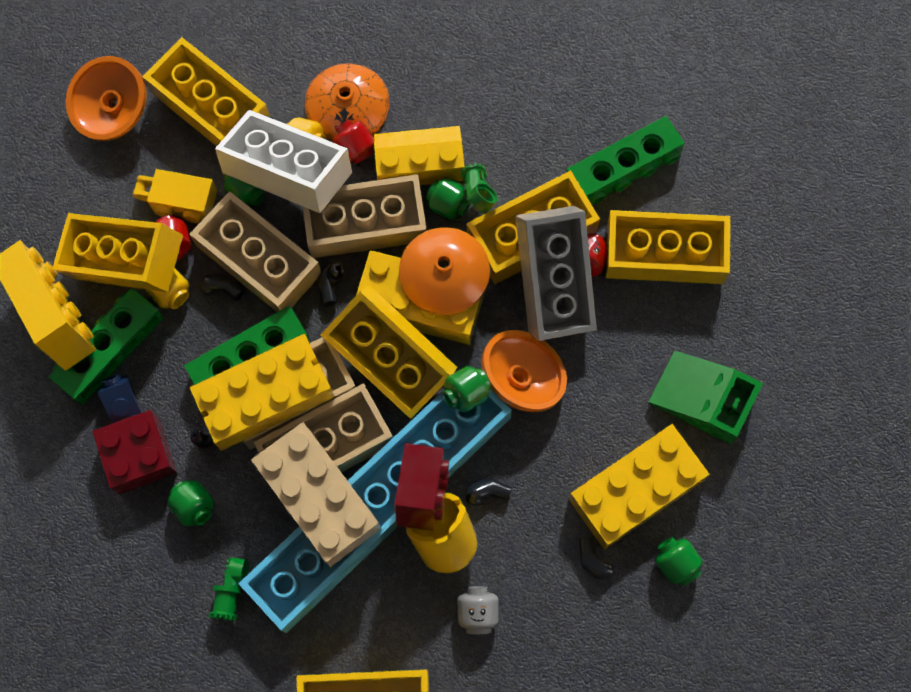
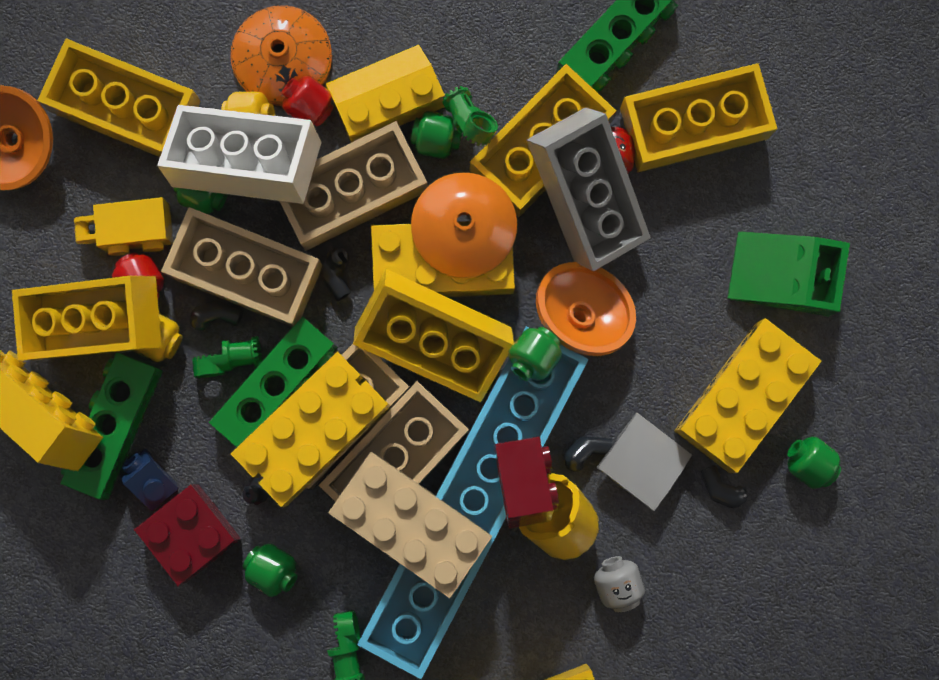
camera: 25 degrees left, 10 degrees up
(222, 321) = (232, 356): none -> green connector
(533, 514) = (644, 461): none -> light grey slope

